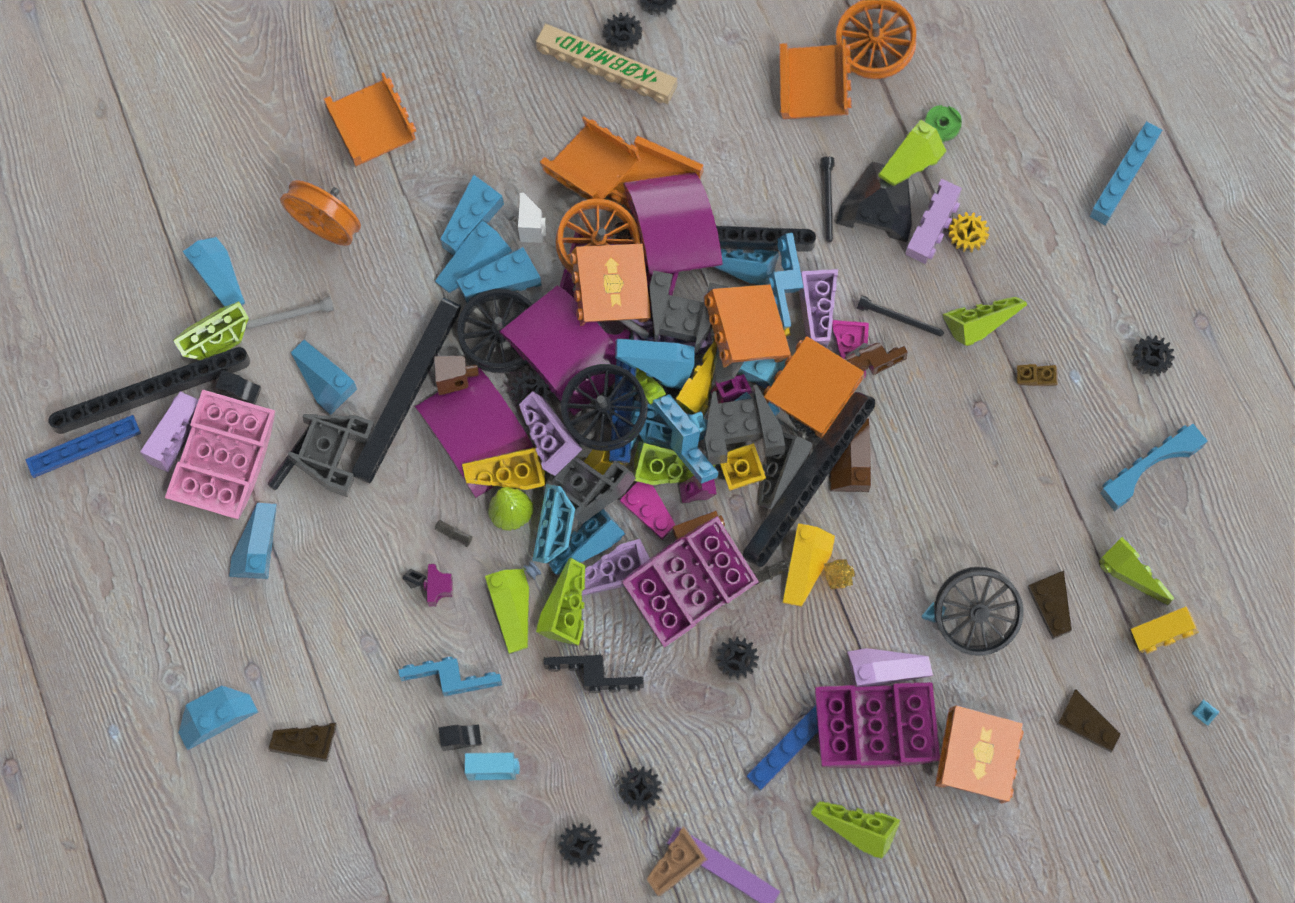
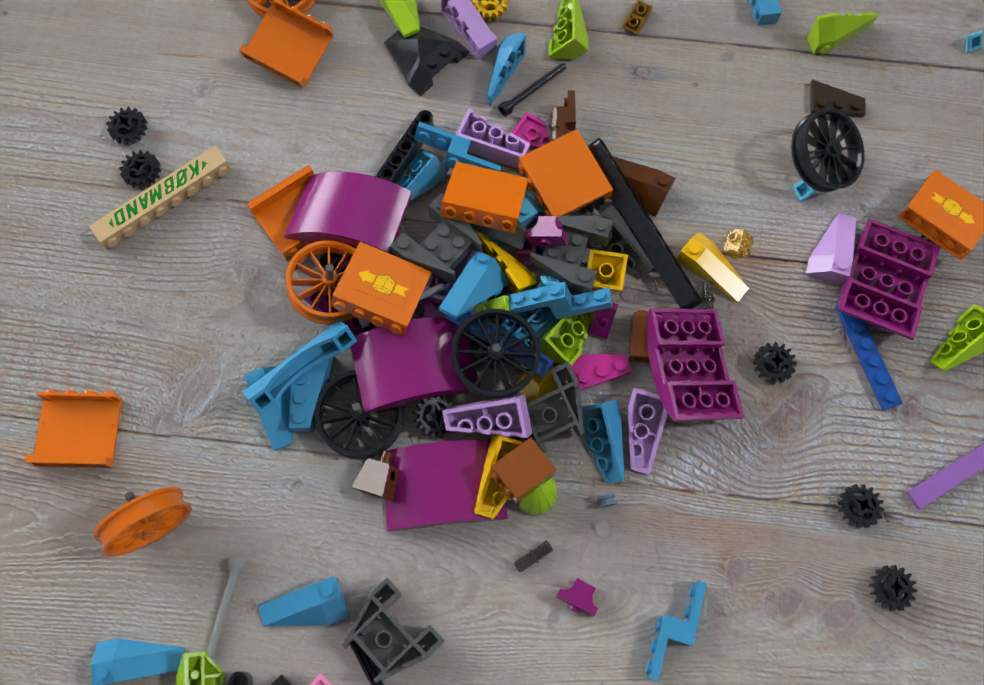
camera: 65 degrees left, 0 degrees up
(406, 390) = (369, 532): black beam -> none
(413, 578) = (560, 616): black slope -> none
(459, 736) = (739, 651): black arch -> none
(477, 204) = (228, 379): dark azure wedge -> none
(491, 766) = (788, 634): medium azure window -> none
(511, 602) = (629, 537): lime wedge -> none
(513, 480) = (522, 471): none -> dark orange brick
(530, 222) = (270, 332): white slope -> none
(541, 270) = (272, 385): none -> dark azure arch
(554, 525) = (581, 456): medium azure wedge -> none
(563, 610) = (662, 494): lime wedge -> none
(592, 162) = (247, 253): orange panel -> none
(594, 673) = (733, 494): black bracket -> none
(677, 863) = (946, 508): medium nougat wing -> none
(741, 394) = (547, 232): none -> magenta brick
(827, 164) = (367, 74): black piece -> none
(917, 278) = (509, 57): none -> dark azure wedge
(1087, 722) = (945, 126): dark brown wing -> none
(1165, 630) = (899, 32): yellow wedge -> none

